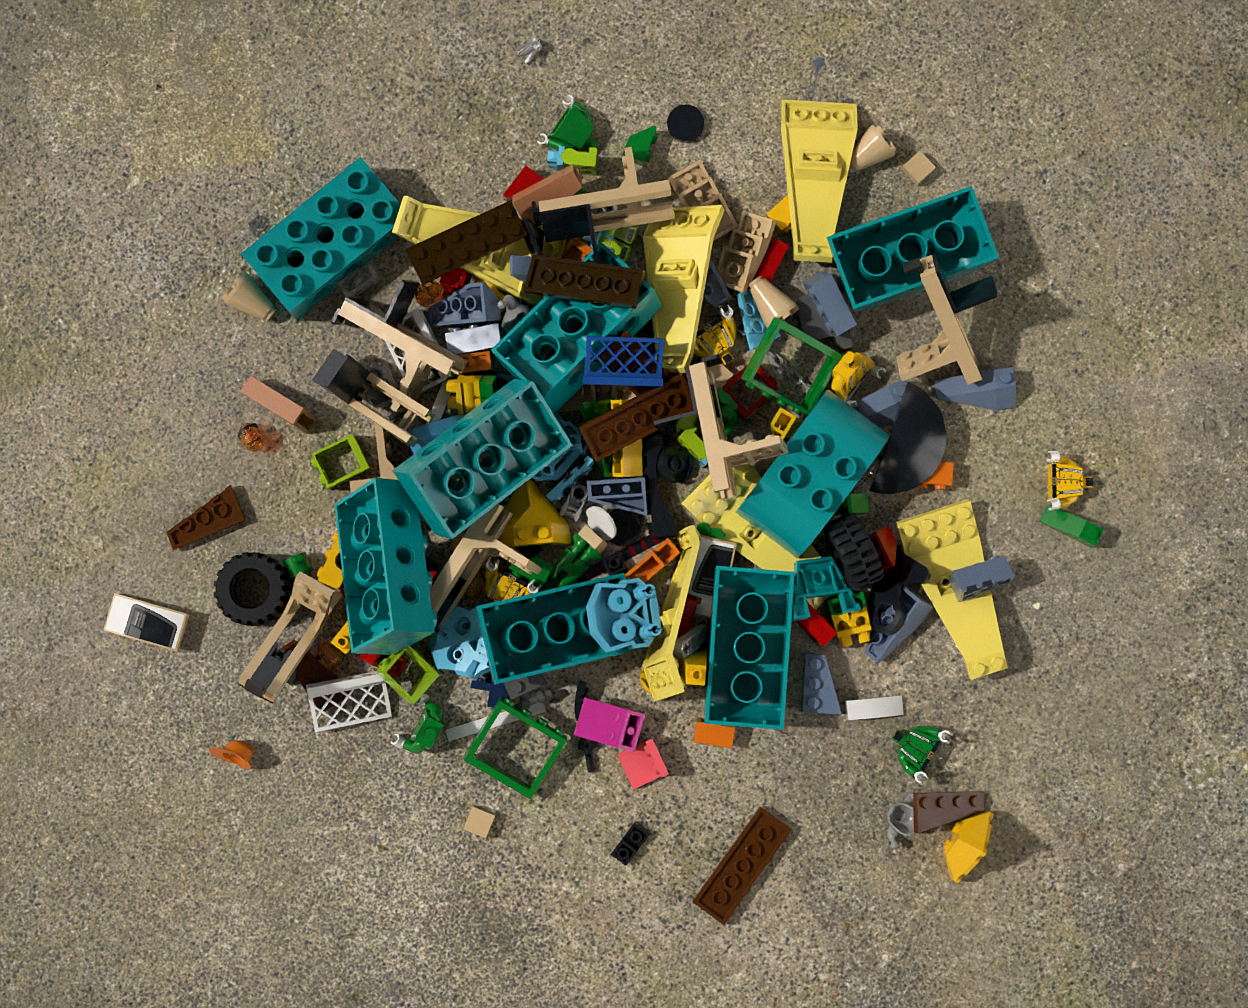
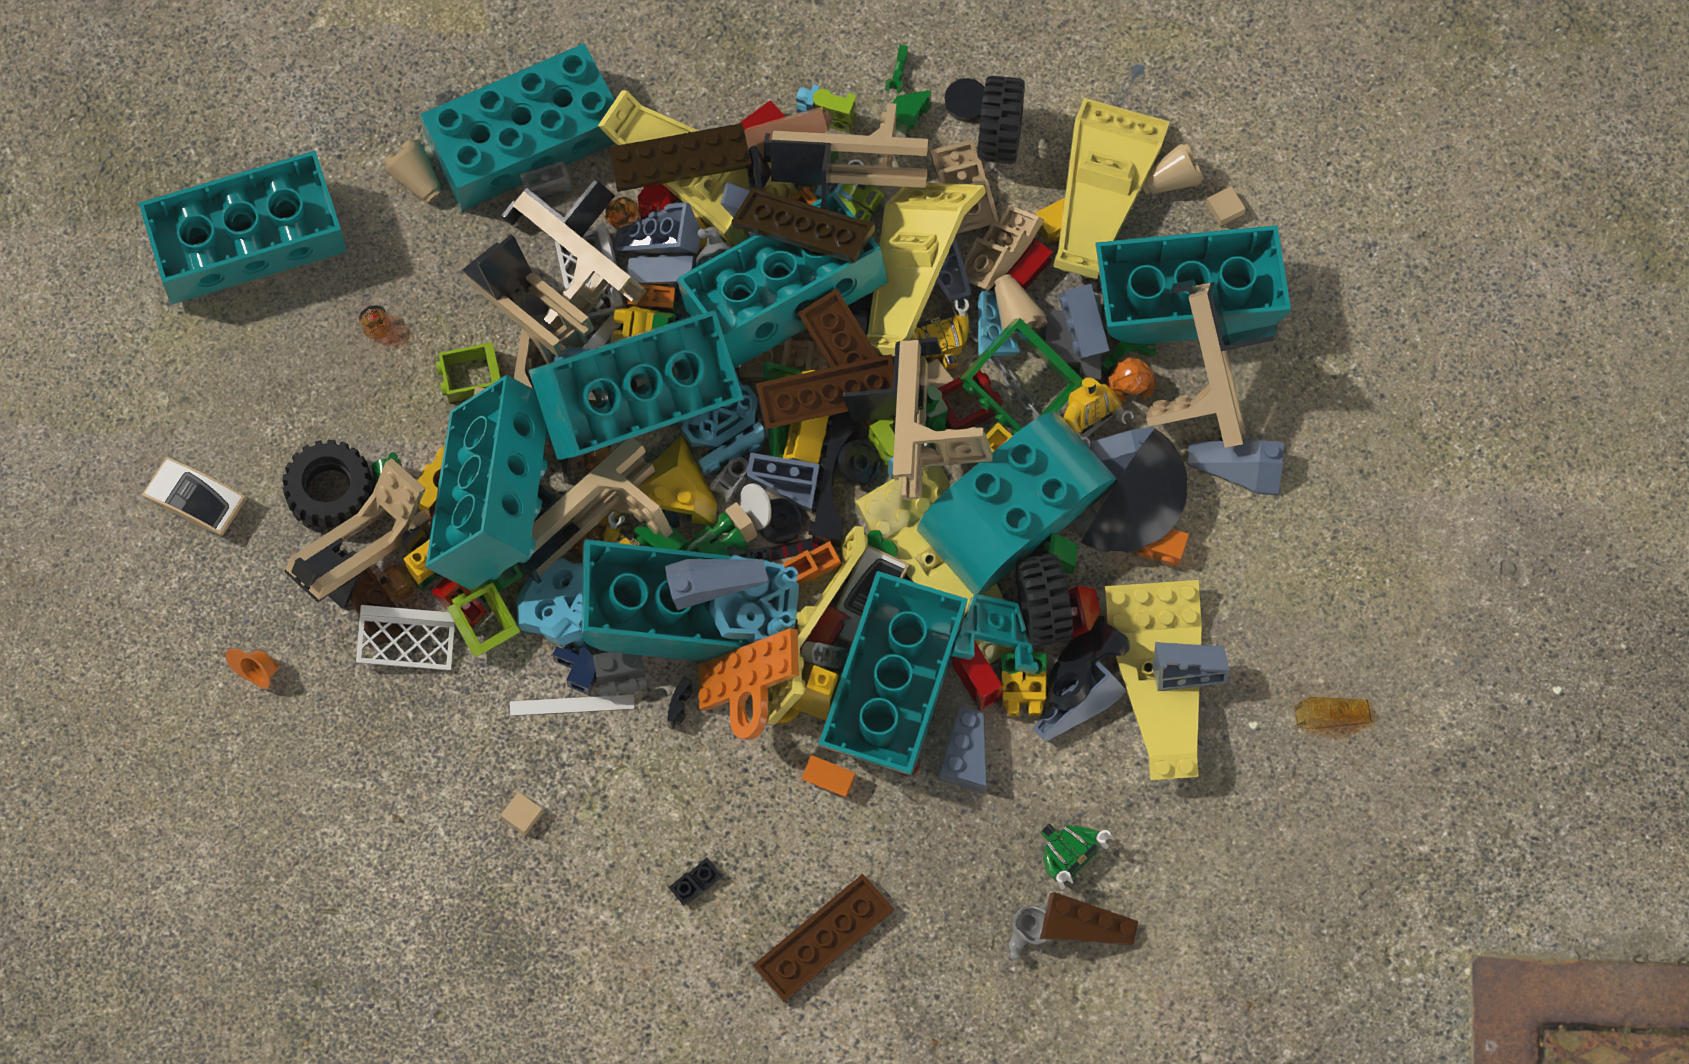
camera: 15 degrees right, 15 degrees down
(100, 373) = (249, 201): none -> teal brick
(216, 515) = (306, 400): reddish brown wing -> none
(279, 404) = (417, 294): nougat slope -> none
(335, 622) = (413, 539): none -> black slope
(425, 730) = (485, 691): green torso -> none
(498, 773) = (609, 697): green window -> none
(572, 129) = (834, 73): green torso -> none
(583, 611) = (707, 579): none -> sand blue wedge
(588, 754) = (672, 765): black bar -> none
(609, 724) = (703, 733): dark pink slope -> none
(618, 377) = (825, 340): blue fence -> none
(624, 125) = (896, 81): none -> green piece
(635, 673) = (747, 673): none -> orange plate
(643, 764) = (735, 791): coral bracket -> none
(721, 141) = (1001, 119): none -> black tyre
(861, 316) = (1124, 347): none -> green piece
(874, 707) = (1028, 792): white slope -> none
(876, 339) = (1132, 377): none -> orange helmet
(967, 844) = (1098, 971): yellow wedge -> none
(1065, 481) = (1318, 586): yellow torso -> none
(1072, 526) = (1316, 641): green slope -> none
(1098, 583) = (1331, 712): none -> clear yellow slope

